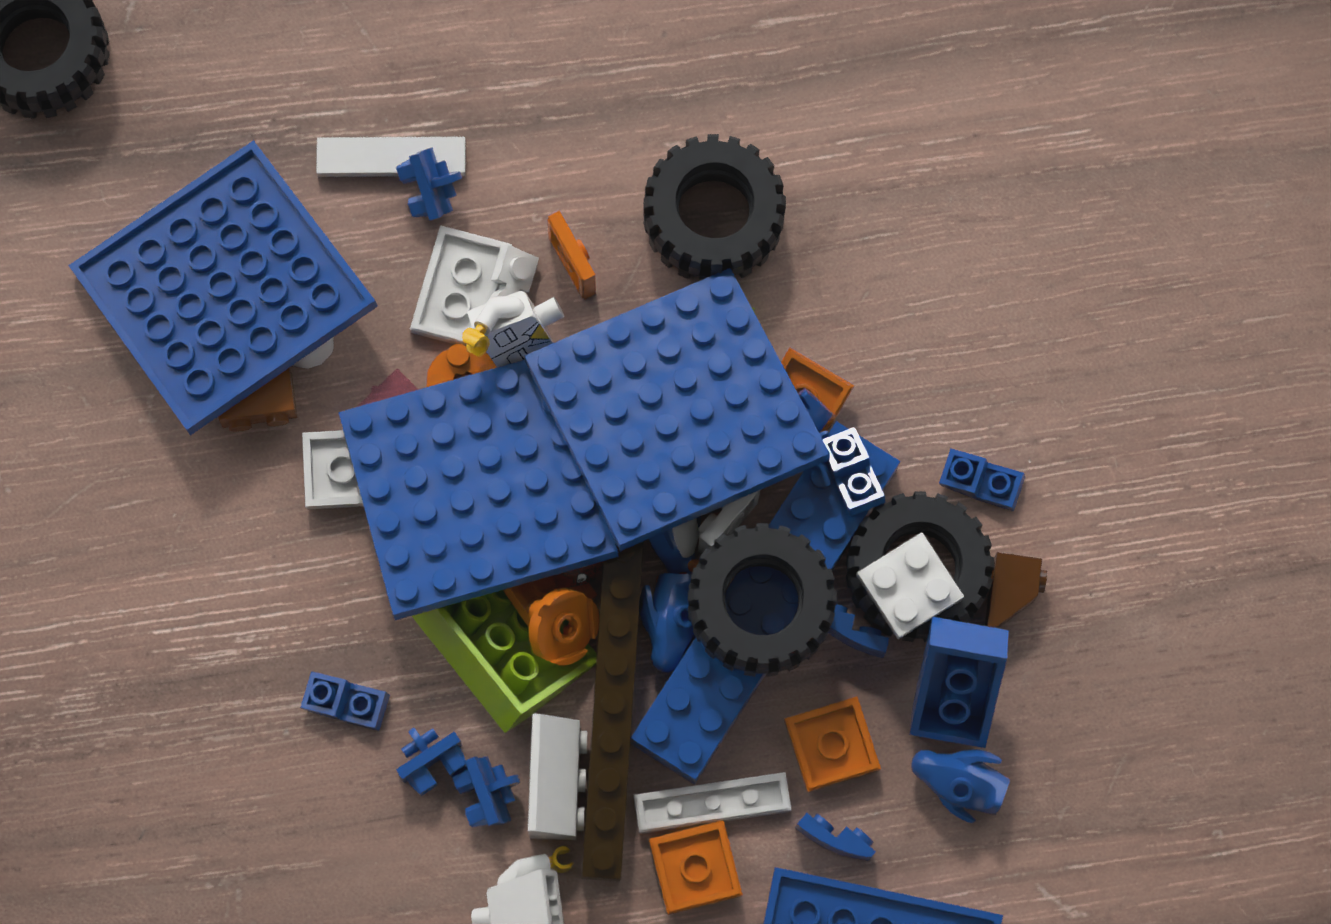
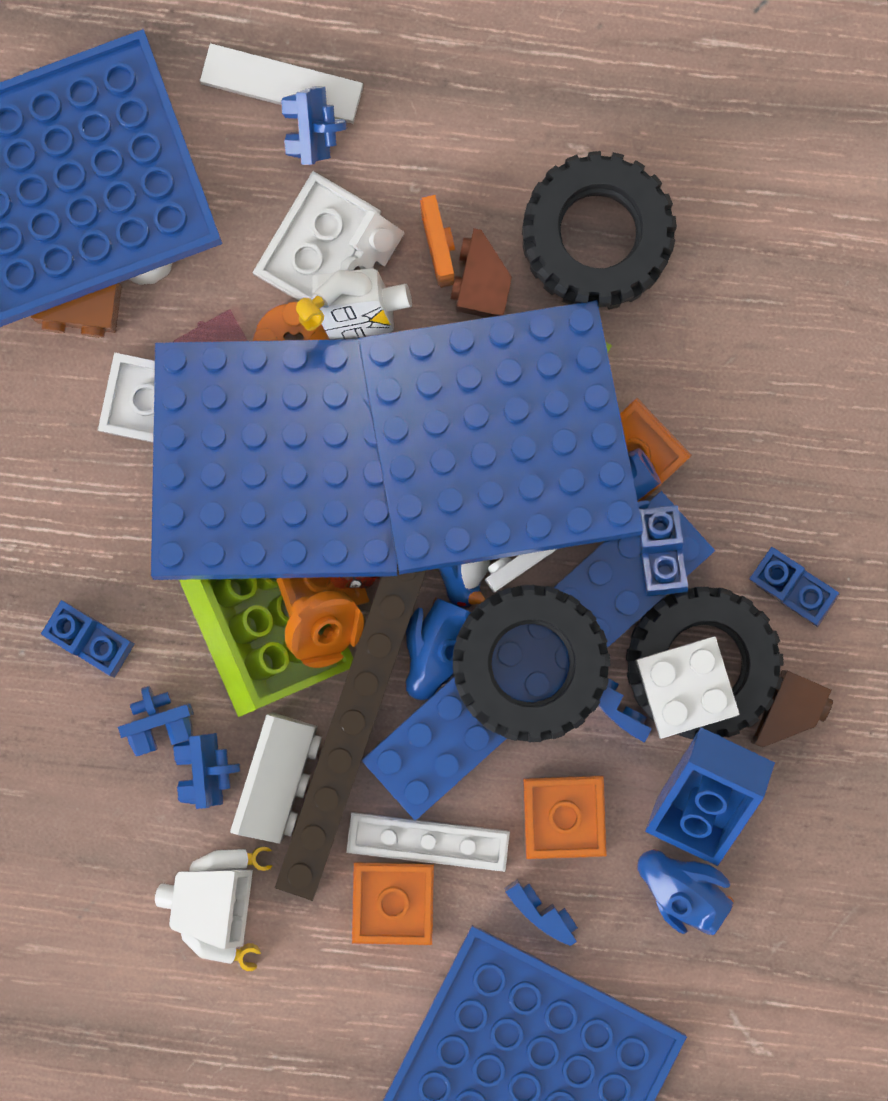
camera: 20 degrees right, 10 degrees up
(624, 278) = (485, 280): none -> copper slope

